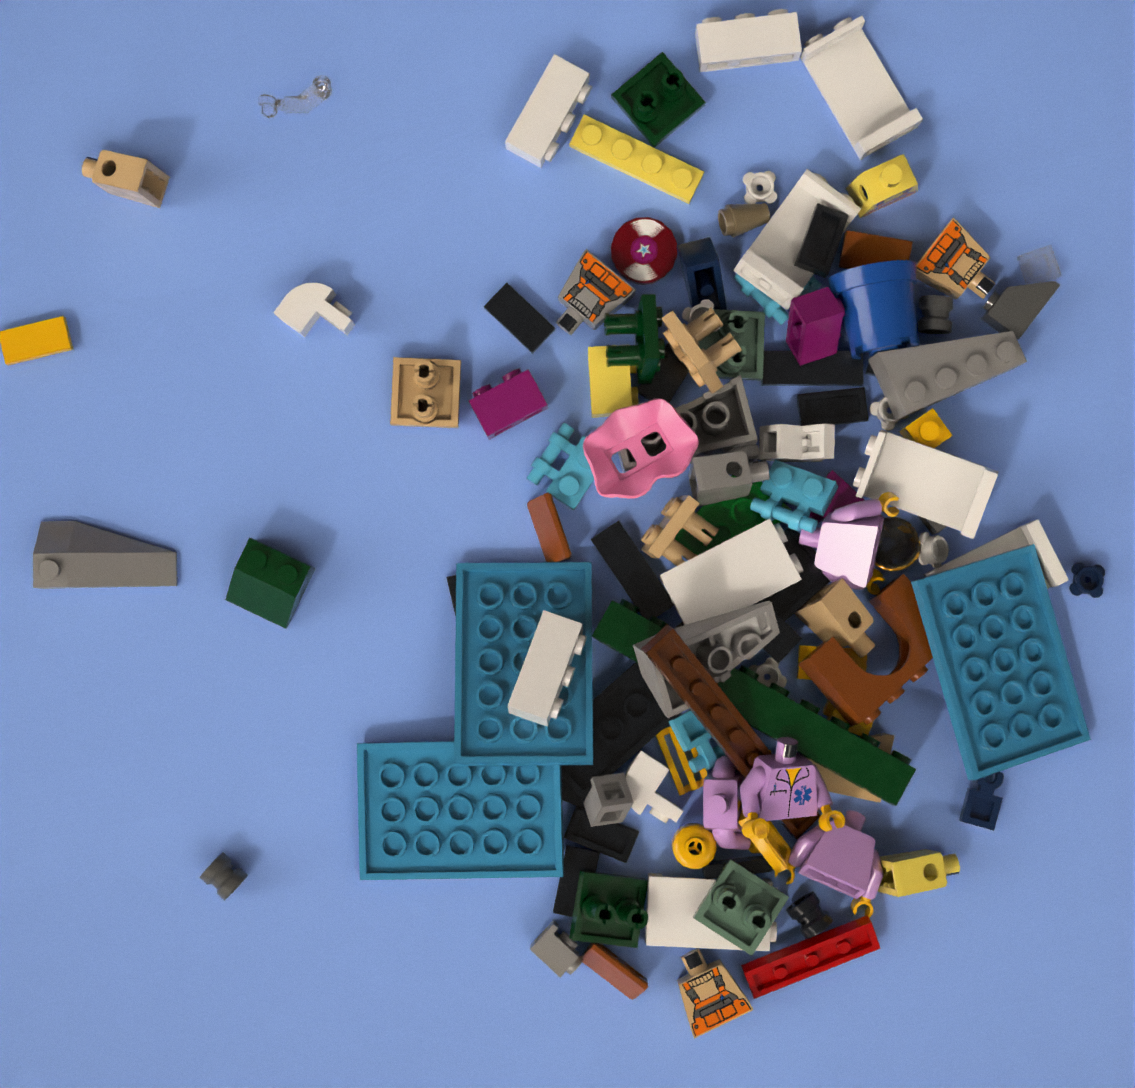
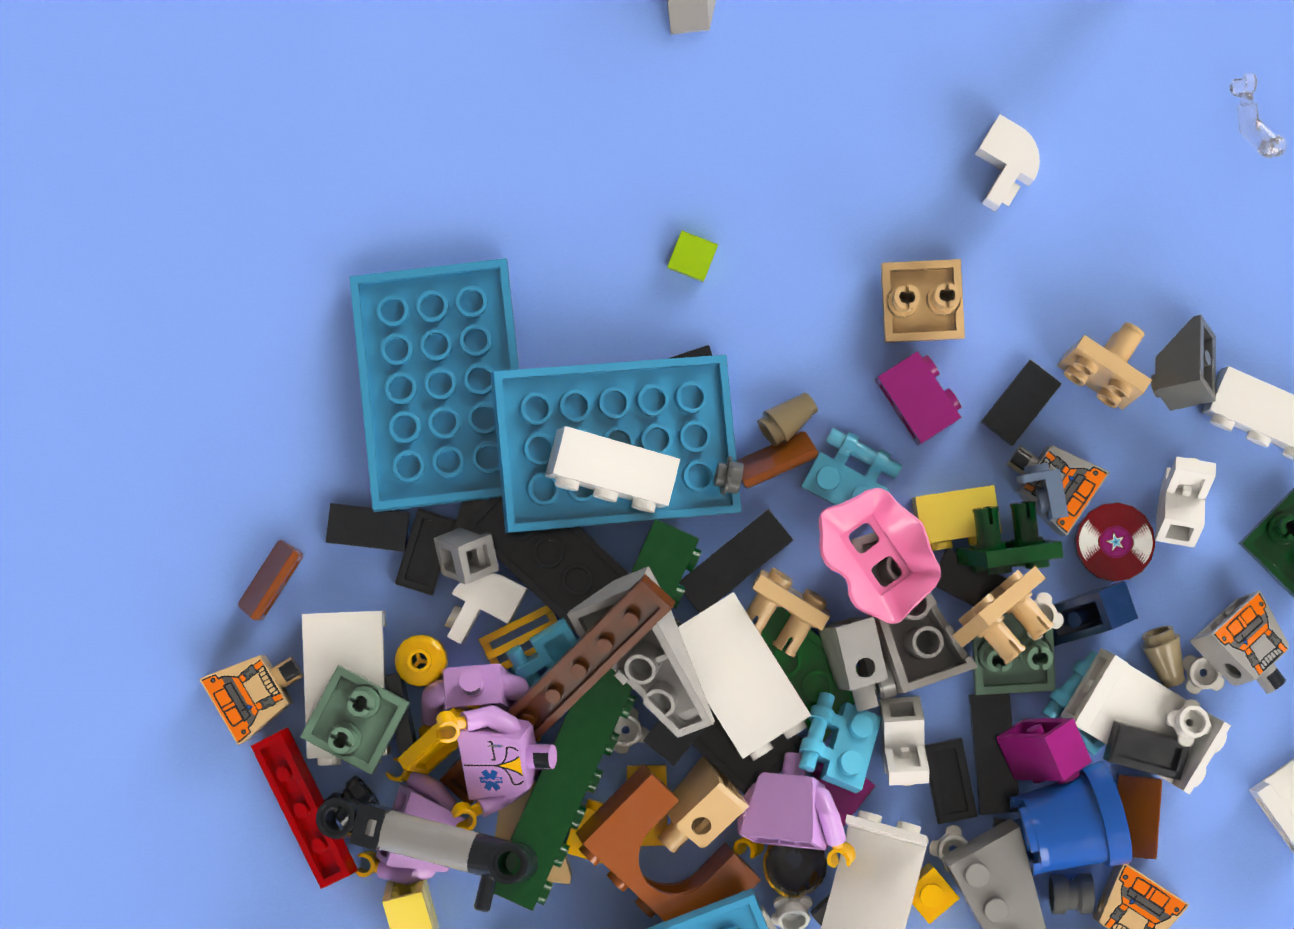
camera: 85 degrees right, 0 degrees up
(223, 877) = (339, 118): dark grey wheel -> none
(268, 582) = (684, 139): dark green slope -> none
(369, 584) = (692, 256): none -> lime tile
(496, 242) = (1107, 367): none -> tan plate
(502, 176) = (1187, 367): none -> dark grey slope
(515, 516) = (786, 419): none -> dark tan cone
(557, 950) = (287, 512): light grey brick -> none
(560, 570) = (728, 476): none -> dark grey plate
(602, 299) = (1051, 495): none -> sand blue bracket
(609, 909) = (339, 567): dark green plate -> none
(615, 190) = (1182, 501): none -> white brick
(636, 159) = (1224, 523): light yellow plate -> none
(738, 150) = (1245, 643): none -> torso
(796, 195) = (1200, 722): none -> white plate
(837, 887) = (429, 841): none -> piece
(883, 185) = (1219, 818): light yellow torso -> none

